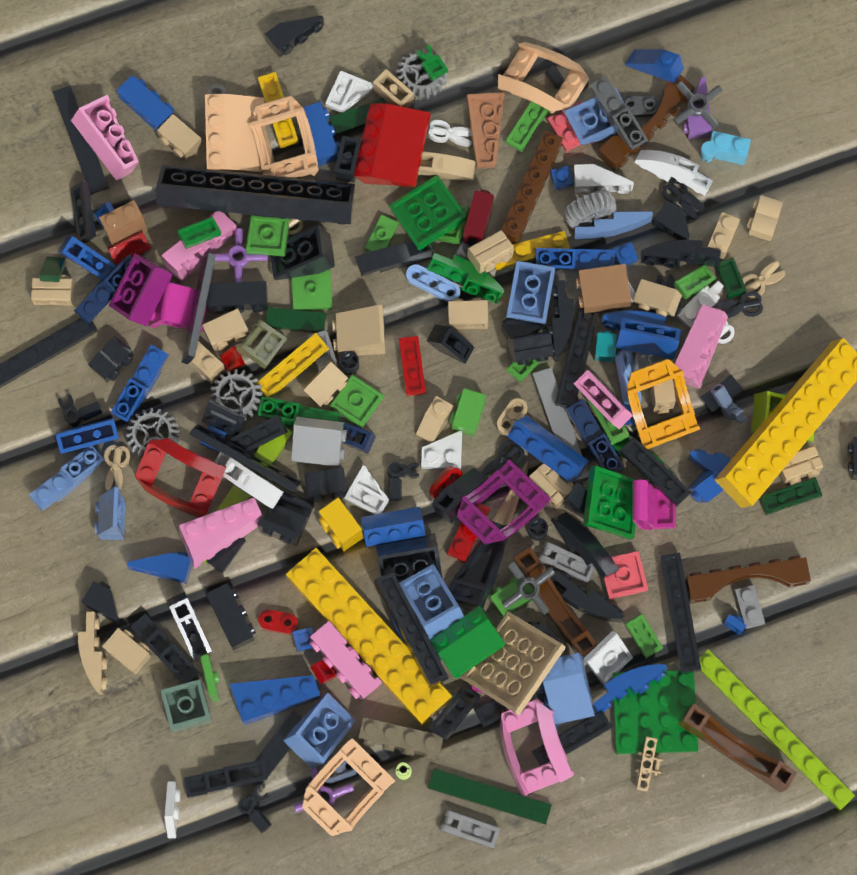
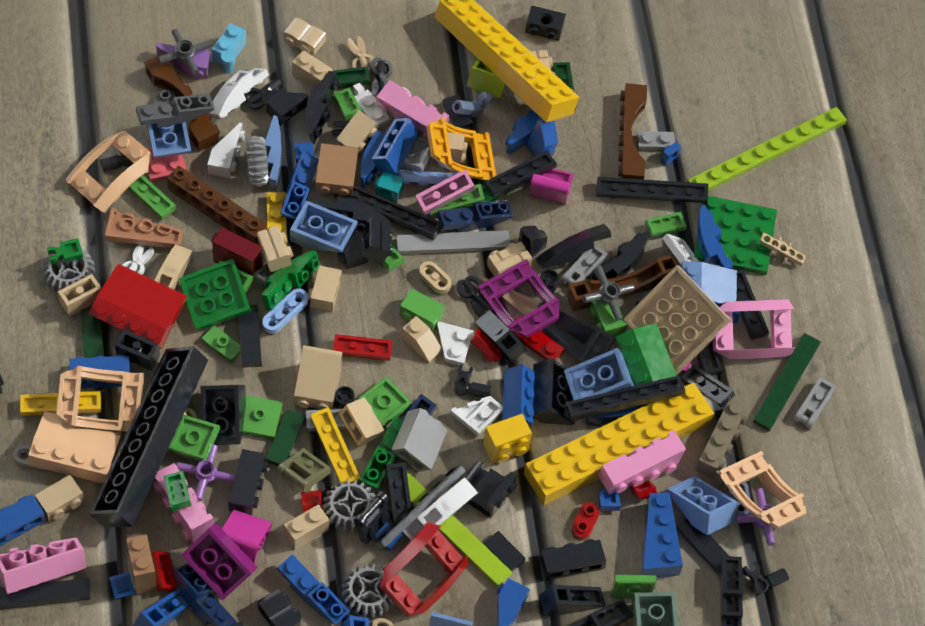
camera: 85 degrees left, 15 degrees down
(83, 212) = (109, 607): black plate -> none
(198, 308) = (256, 511): tile -> none
(218, 530) = (491, 550): bright pink wedge -> none
(226, 330) = (278, 500): tan brick -> none
(326, 484) = (461, 446): black brick -> none
(347, 92) = (63, 338): white wing -> none
(403, 776) = (751, 445): yellowish green pin -> none
(450, 343) = (348, 310): black slope -> none
(548, 448) = (477, 251): blue brick -> none
(562, 177) = (213, 180): blue plate -> none
(610, 503) = (541, 213): green plate -> none
(628, 579) = (614, 219): coral plate -> none
(656, 63) = (128, 77): blue slope -> none
(757, 763) = (764, 191): reddish brown arch -> none

